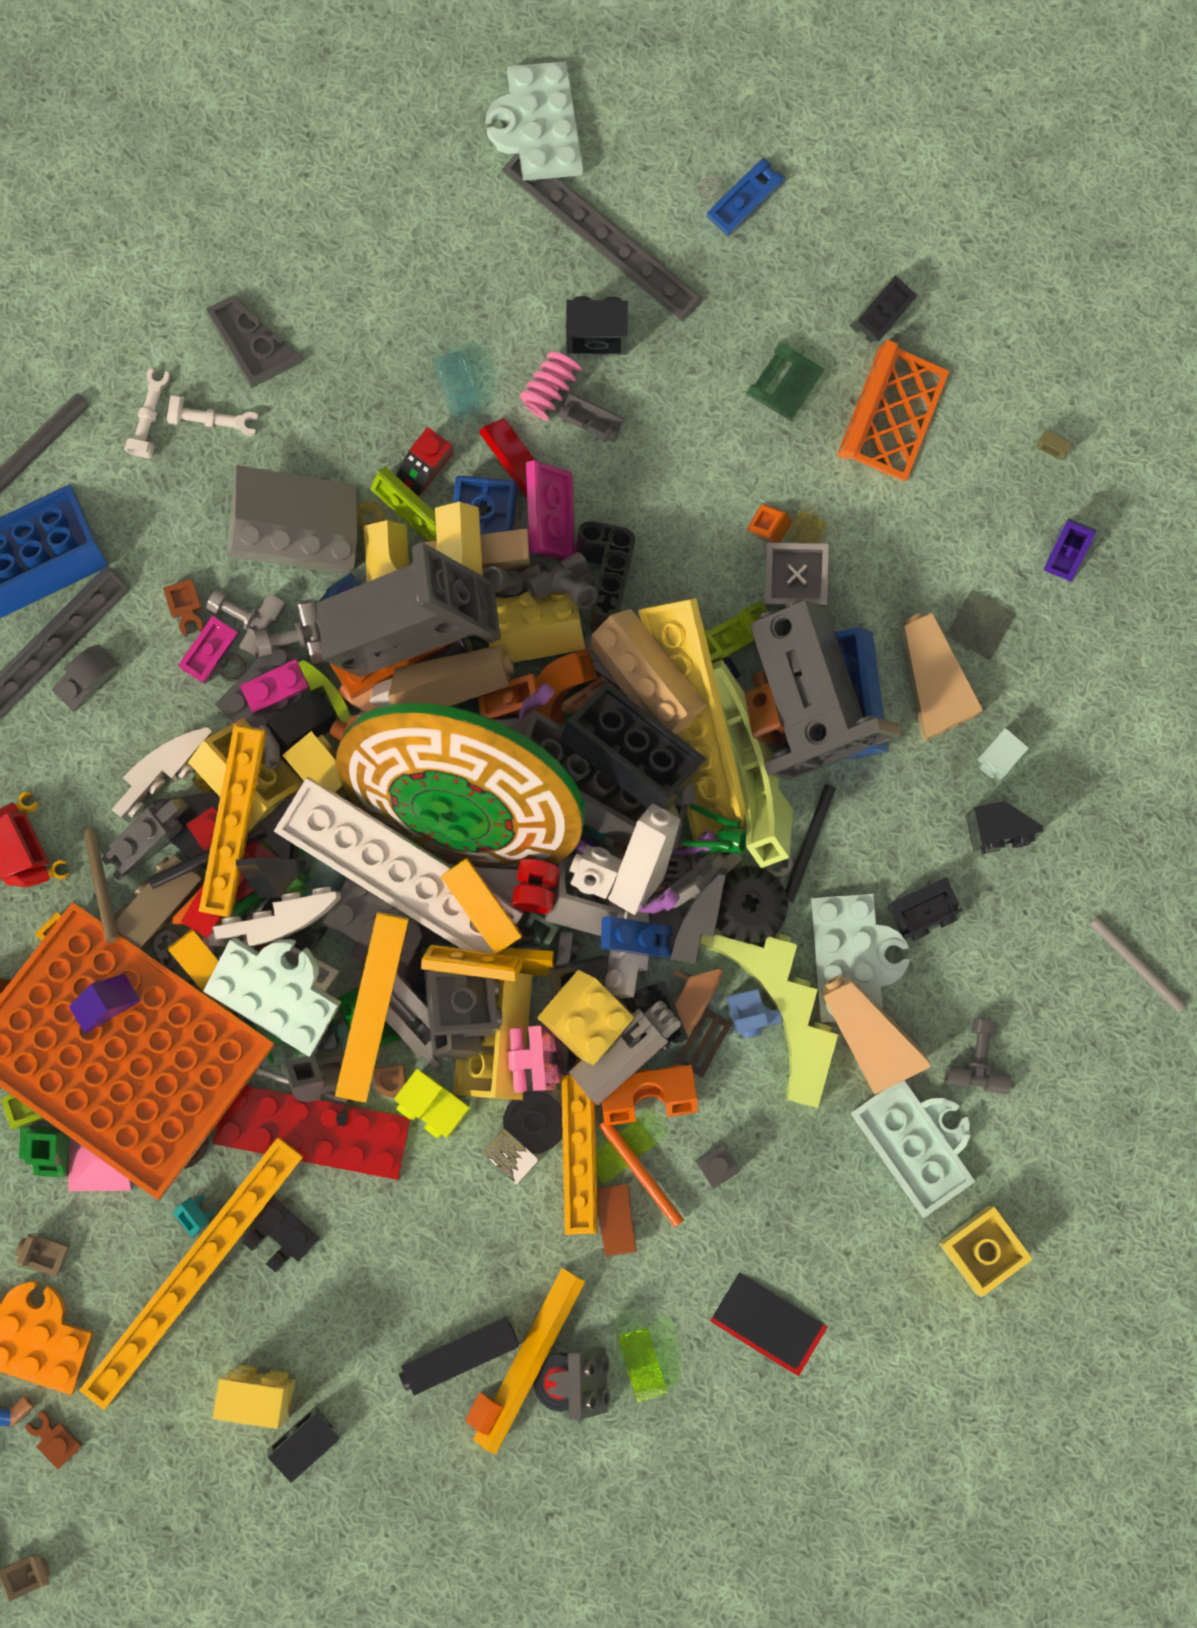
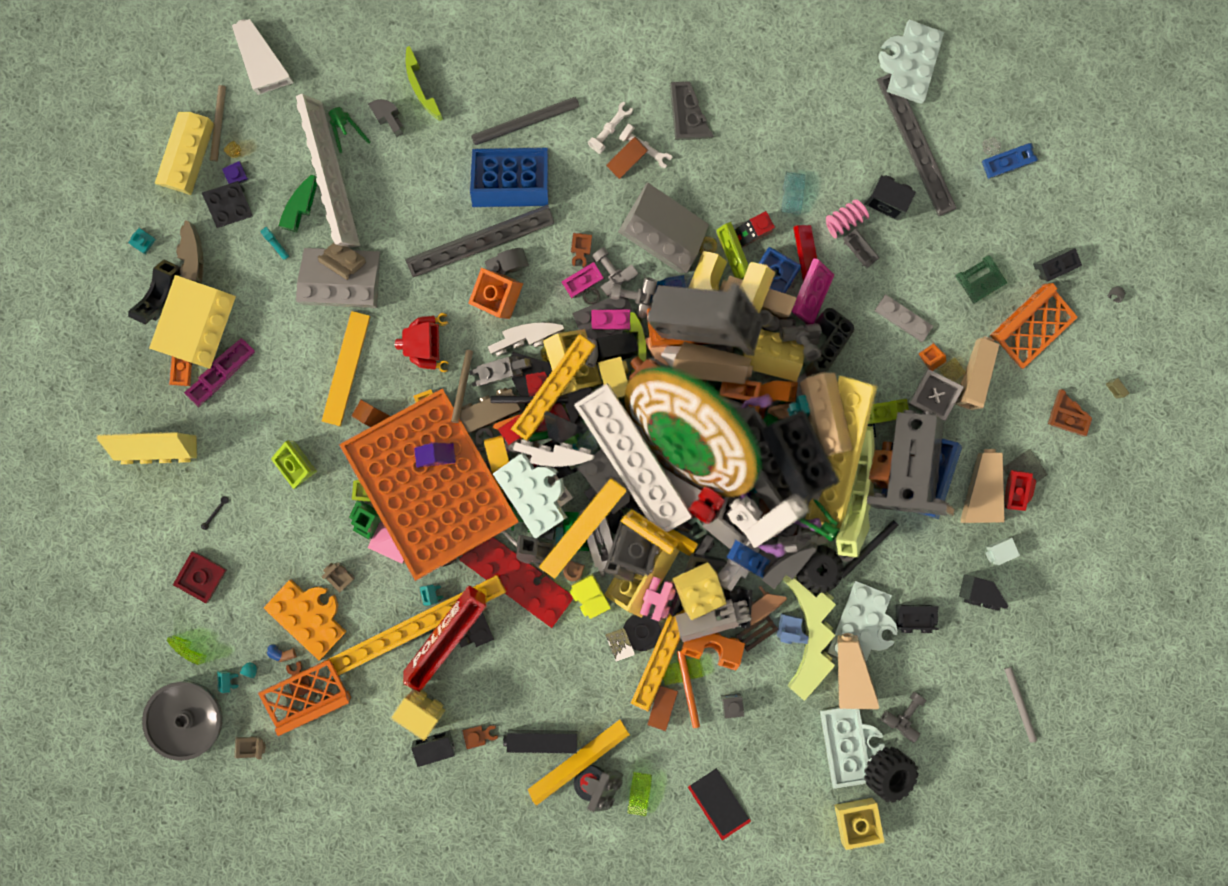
camera: 20 degrees right, 5 degrees up
(88, 727) = (495, 293): none -> orange slope
(93, 1477) = (315, 709): none -> orange fence
(192, 444) = (627, 157): none -> dark orange slope
(241, 1268) = (444, 638): none -> red brick
(360, 1396) = (476, 736): none -> dark orange plate
(481, 905) = (671, 502): yellow tile -> none
(483, 1413) = (540, 779): orange tile -> none
(603, 674) = (800, 404): none -> teal tile
(701, 488) = (903, 318): none -> light grey plate
(844, 518) = (978, 374): none -> tan slope
(985, 654) = (1019, 490): none -> red slope
(991, 309) = (1119, 292): none -> dark grey hinge
(1004, 516) = (1069, 415): none -> dark orange wing
(1014, 1160) = (891, 774): none -> black tyre
(1069, 549) = (1097, 452): dark purple slope -> none

